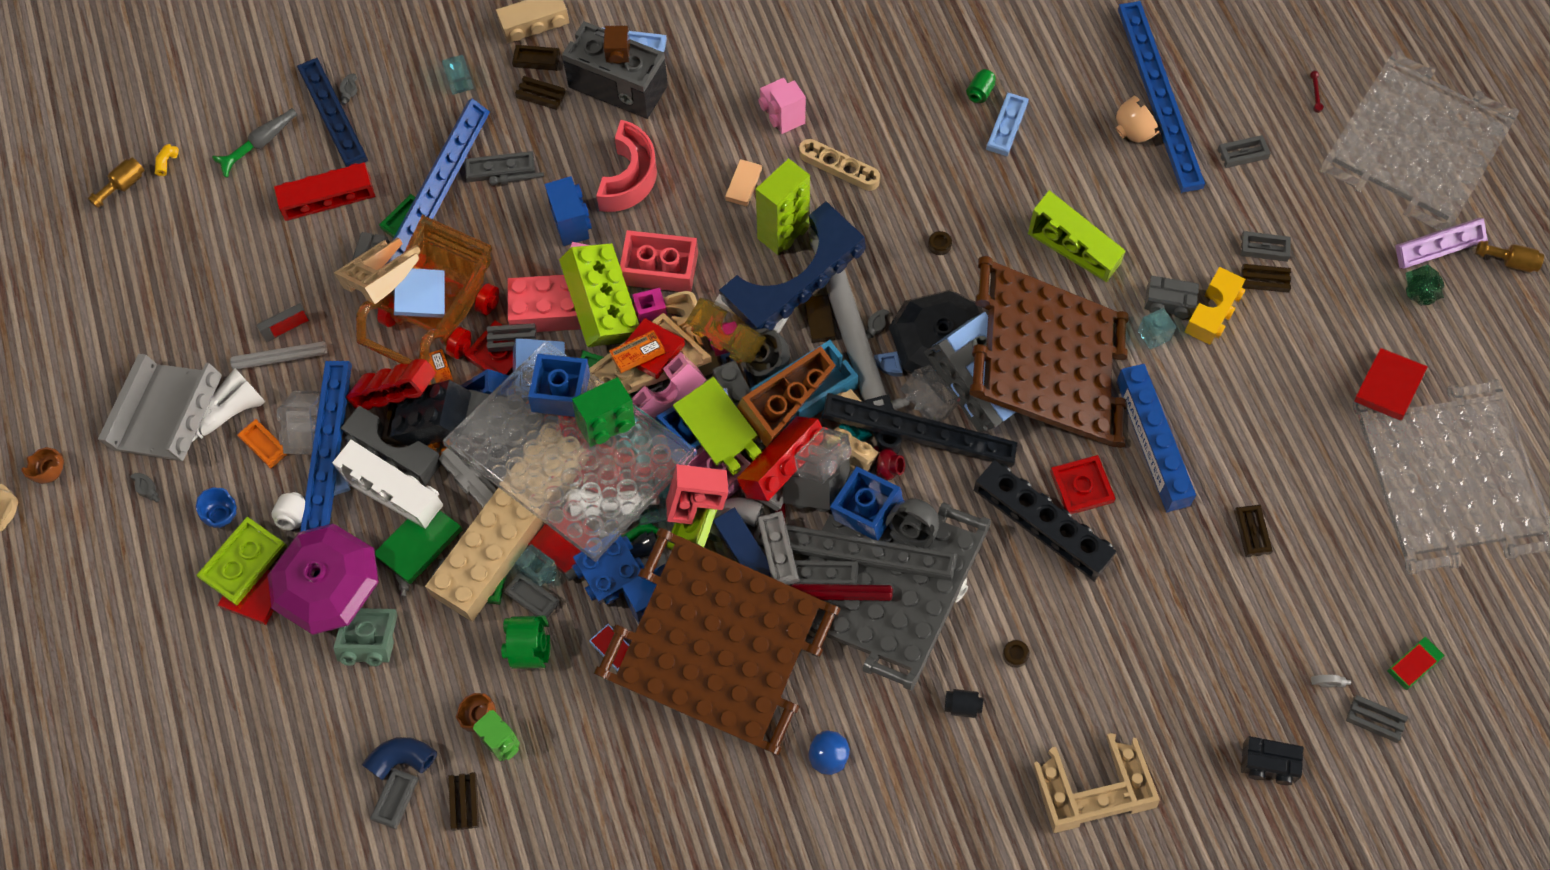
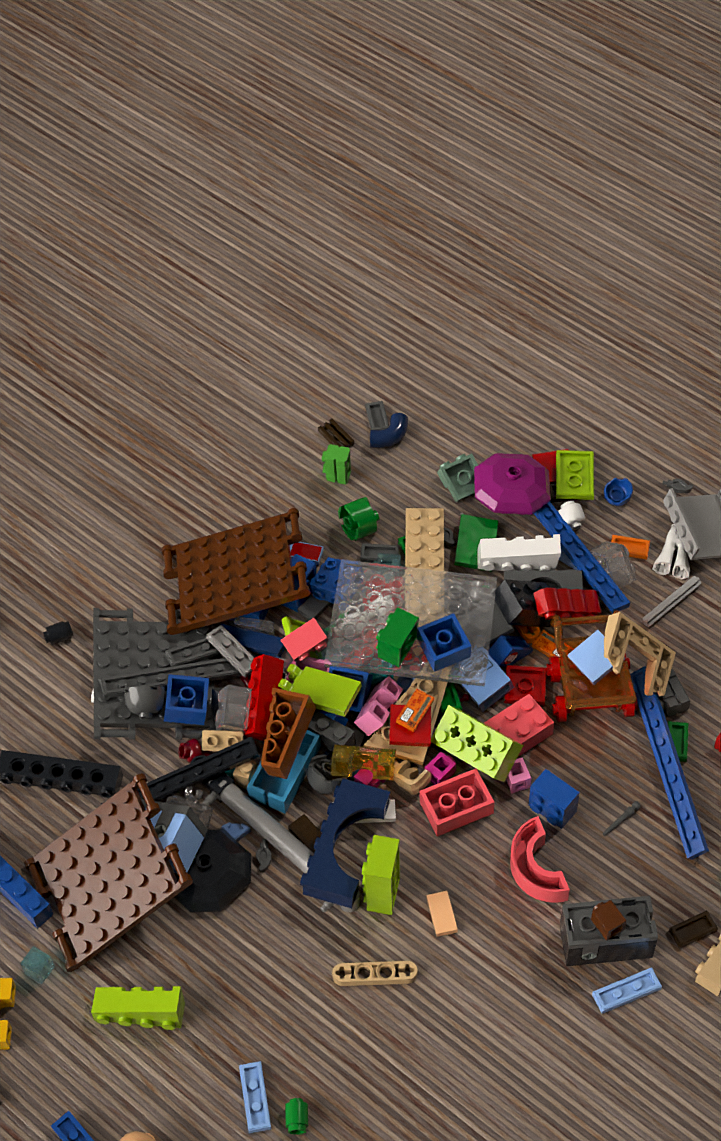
camera: 150 degrees right, 10 degrees down
(283, 322) = (688, 619): tile -> none
(473, 709) = (361, 474): dark orange hair -> none
(507, 164) = (641, 820): dark grey tile -> none
(509, 333) = (533, 684): dark grey tile -> none
(541, 89) = (666, 890): dark brown tile -> none
(643, 544) = (324, 616): black cone -> none
(784, 104) = (453, 994): bright pink brick -> none
(828, 752) = (130, 566): blue hair -> none
(847, 591) = (161, 647): dark red axle -> none
(940, 243) = (251, 950): dark brown tile -> none
(1015, 653) = (38, 683): dark brown tile -> none
(1082, 485) = (43, 818): red tile -> none
(1173, 295) = (37, 1001): dark grey brick -> none

